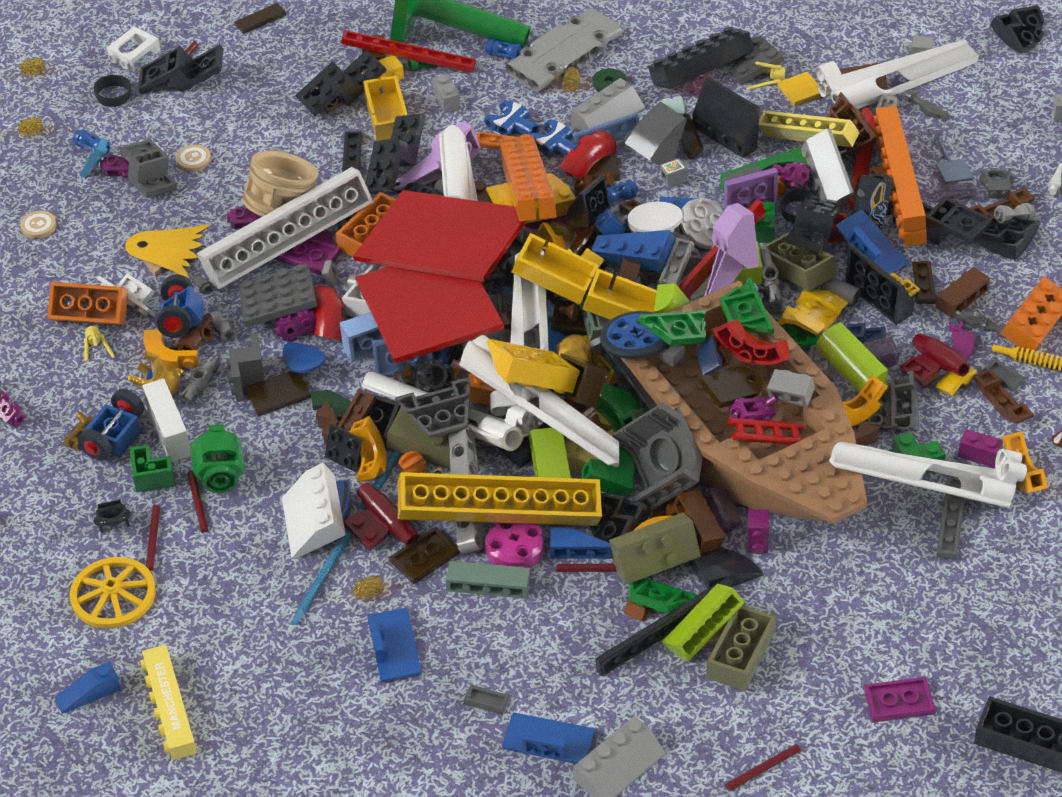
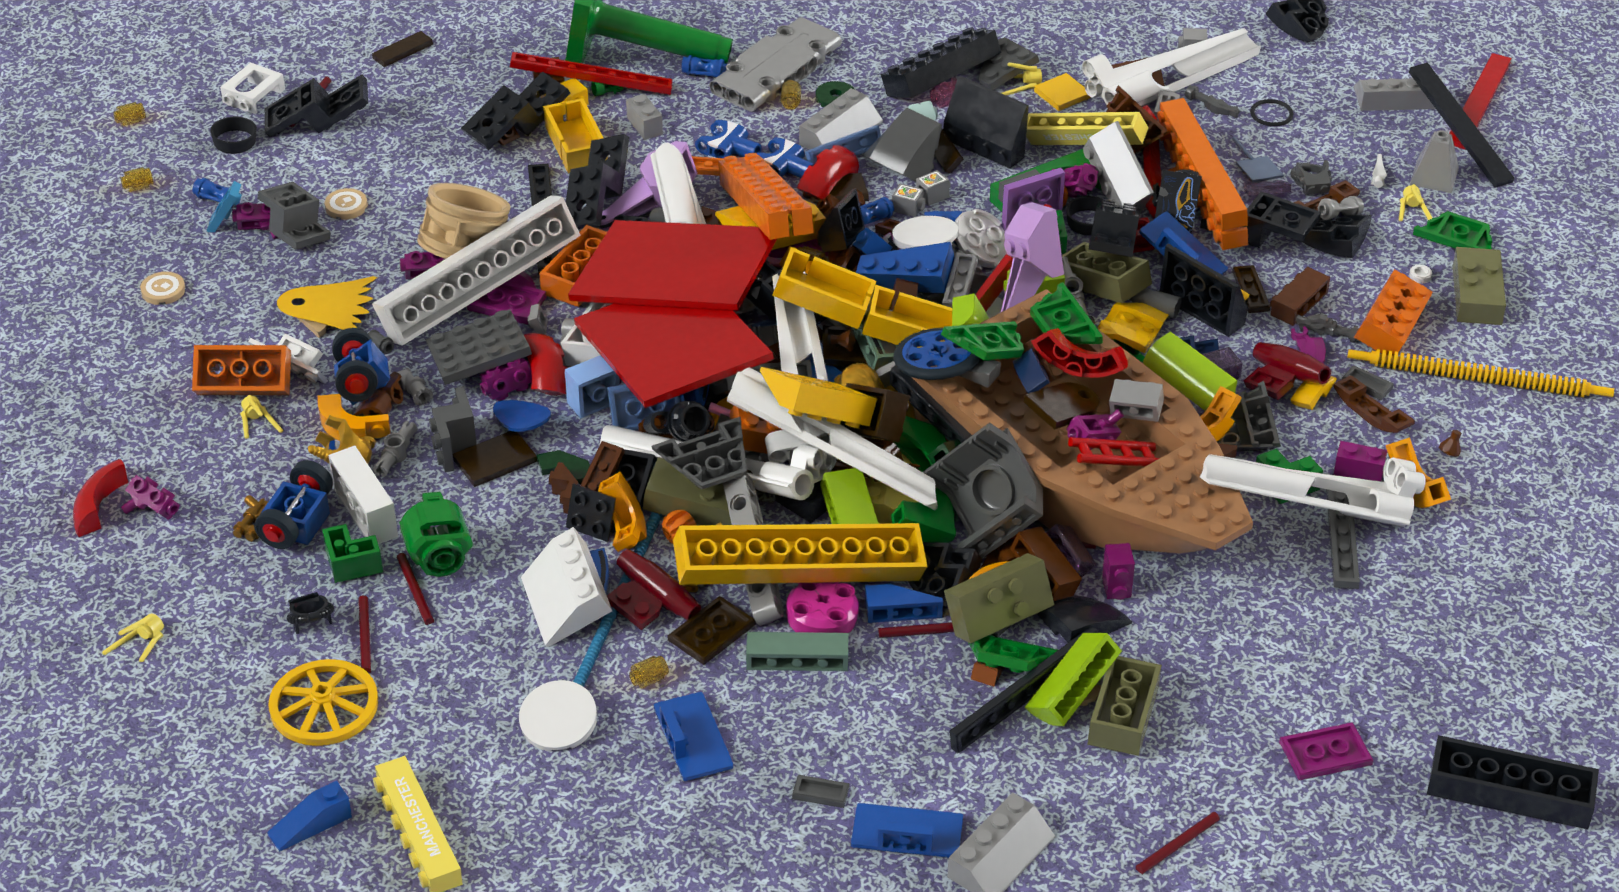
camera: 10 degrees left, 5 degrees down
(290, 619) = (558, 715): none -> white tile
(651, 183) = (908, 200): none -> light grey brick
(976, 129) = (1271, 123): none -> black tyre

